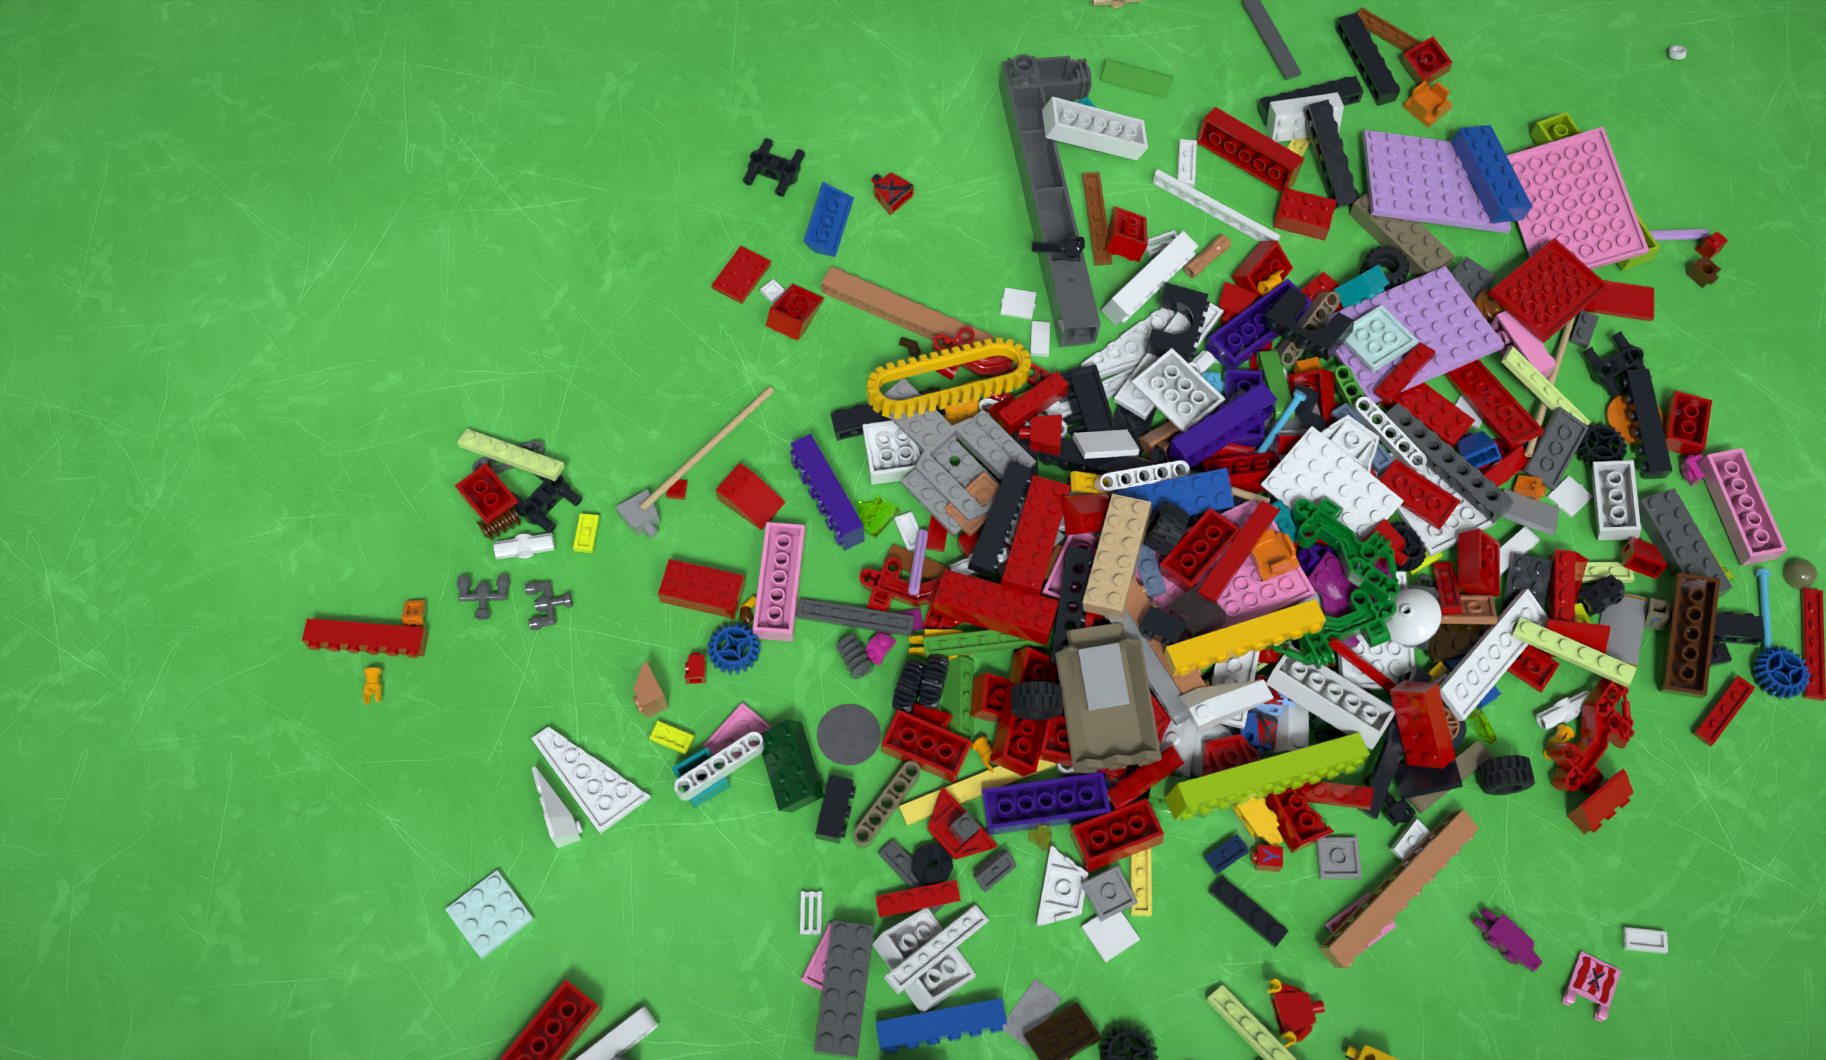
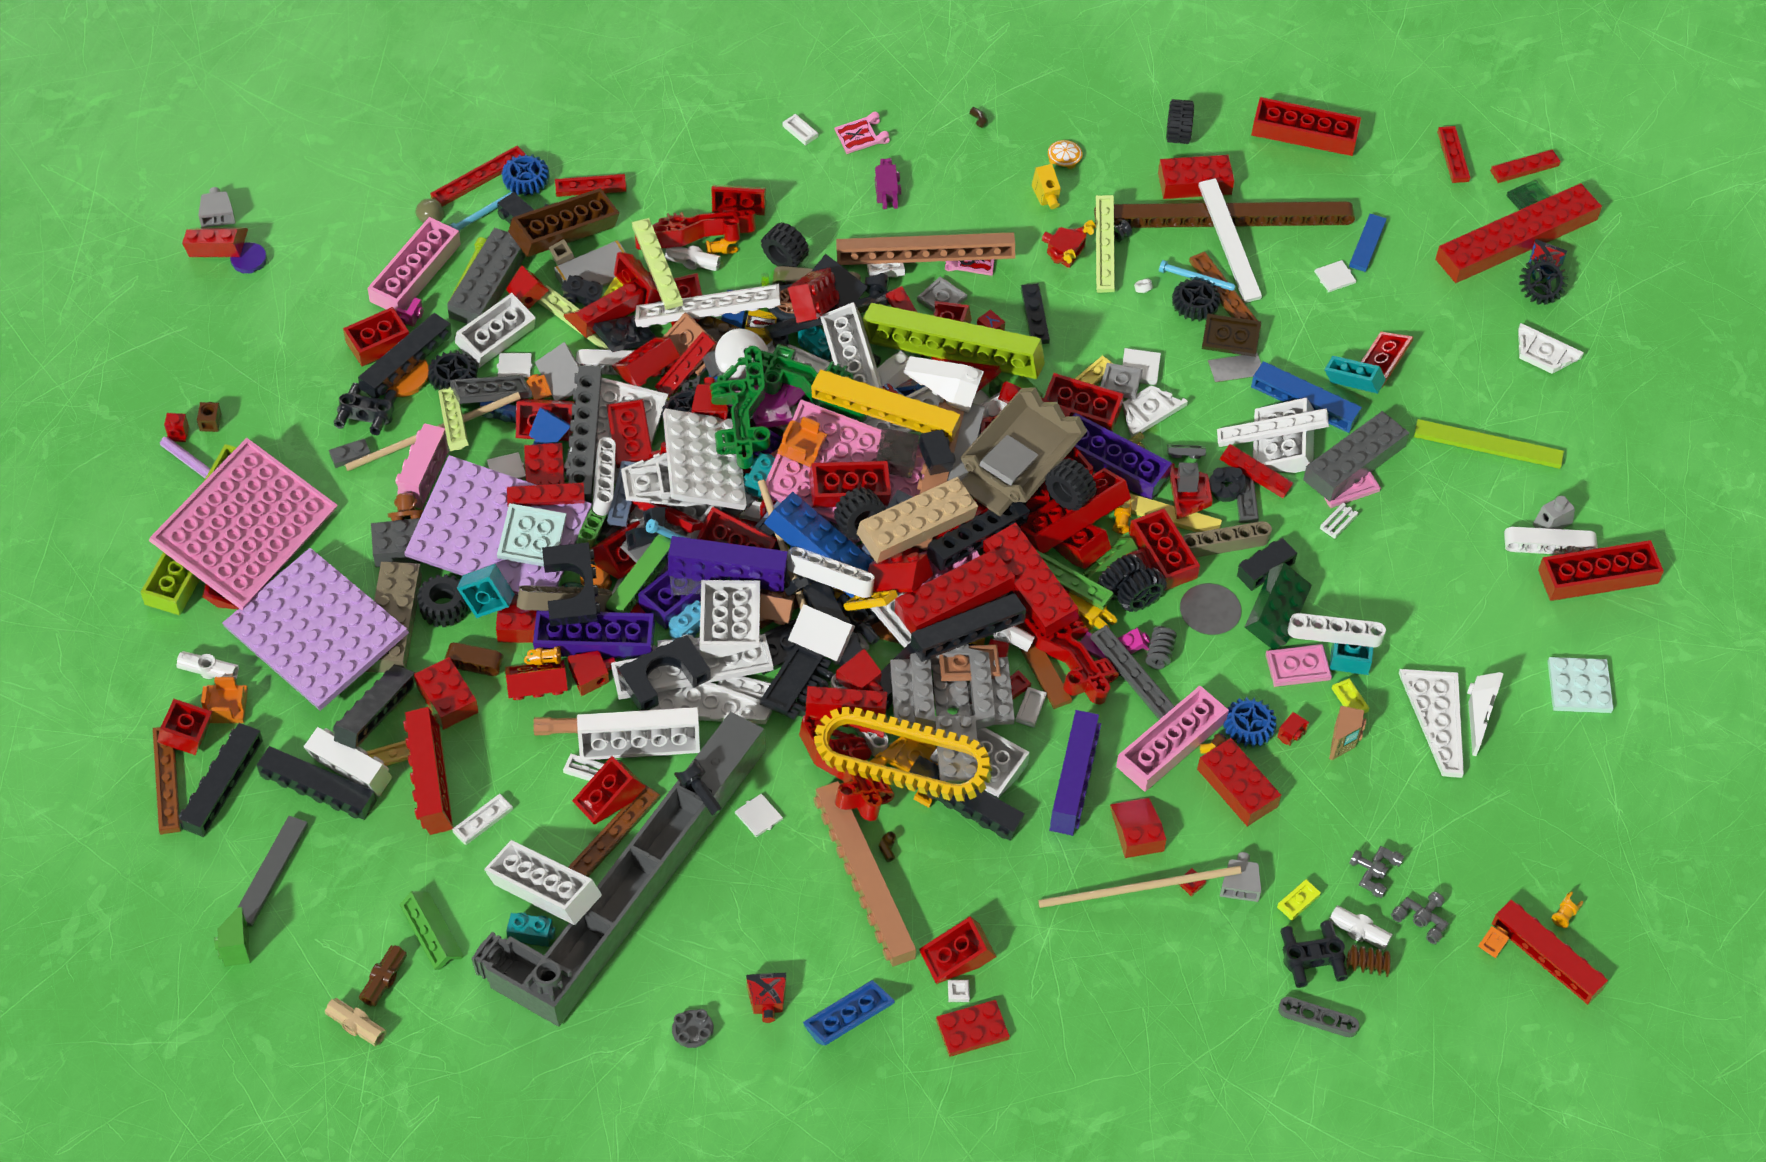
camera: 140 degrees left, 10 degrees down
(486, 494) = (1365, 982): red slope -> none
(511, 454) = (1317, 1009): yellowish green plate -> none
(774, 167) = (849, 1105): black piece -> none
(876, 515) = (1047, 736): clear neon green slope -> none
(917, 140) = (692, 1028): none -> dark grey dish
(918, 560) = (1051, 667): lavender axle -> none
(1040, 339) = (773, 770): white tile -> none
(1132, 30) = (383, 975): none -> reddish brown piece
(1187, 1029) = (1143, 286): none -> white tile
(1213, 208) = (511, 756): white tile -> none
(1238, 551) = (830, 451): red tile -> none
(1317, 252) = (475, 659): none -> reddish brown beam
(1361, 664) = (808, 351): red axle -> none
(1467, 113) = (199, 664): none -> white piece
(1491, 174) = (271, 590): blue brick -> none
(1494, 404) = (499, 432): red plate -> none
(1548, 290) = (355, 473): red plate -> none
(1625, 301) = (296, 451): red tile -> none

